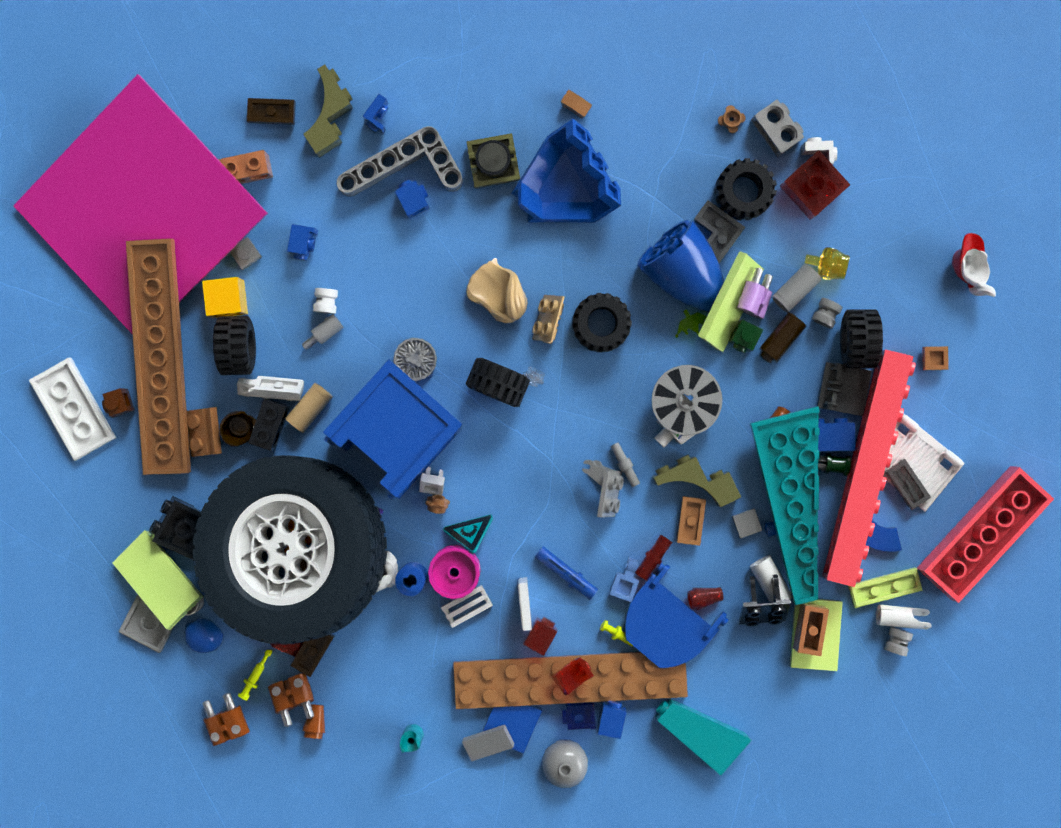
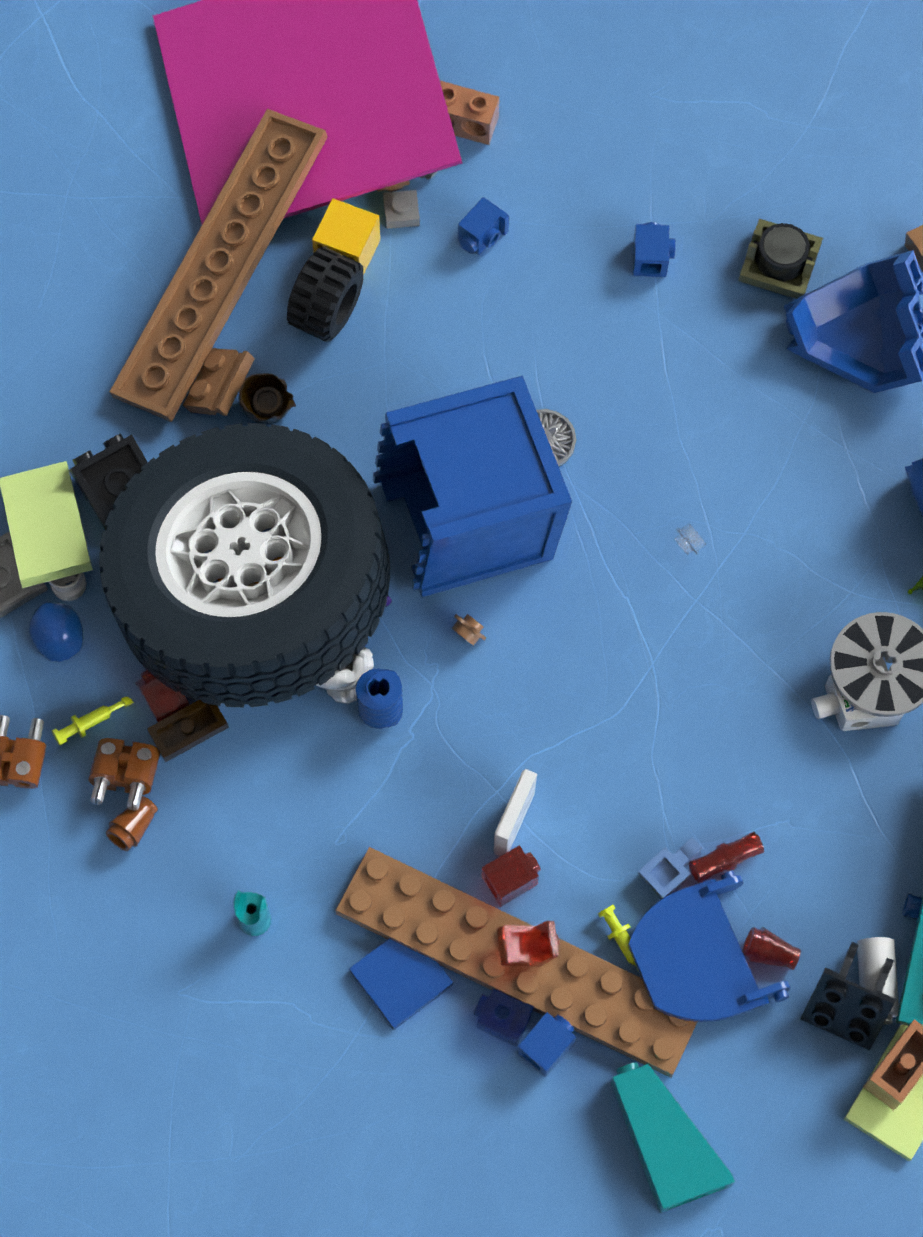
camera: 30 degrees right, 20 degrees down
(72, 409) = (70, 275): white tile -> none
(117, 402) = (133, 291): reddish brown brick -> none
(269, 424) = (313, 409): black brick -> none
(271, 111) = (532, 69): dark brown plate -> none
(271, 388) = (335, 374): white hinge -> none
(309, 407) = (364, 424): tan pin -> none
(322, 134) = (585, 122): olive arch -> none
(323, 331) = (445, 345): light grey piece -> none
(325, 300) = (470, 309): white wheel -> none
(376, 110) = (661, 131): blue bracket -> none
(401, 161) = (662, 202): light grey beam -> none
(432, 484) = (476, 599): white tile -> none
(448, 584) = (439, 702): dark pink wheel -> none
(449, 616) = (430, 771): white tile -> none
(470, 532) = (491, 688): piece -> none
(488, 742) = (353, 981): light grey tile -> none
(497, 382) = (640, 510): black tyre -> none
(498, 292) = (700, 412): tan piece -> none
(550, 310) = (757, 472): tan hinge -> none
(565, 763) = (444, 1076): light grey cylinder -> none
(588, 589) = (599, 826): blue pin -> none
(611, 484) = (714, 728): light grey plate -> none
(621, 316) = (822, 490): black tyre -> none
(625, 464) = (752, 715): light grey bar -> none
(691, 520) = (805, 835): medium nougat plate -> none
(719, 486) = (836, 765): olive arch -> none
(747, 523) = (883, 883): light grey tile -> none

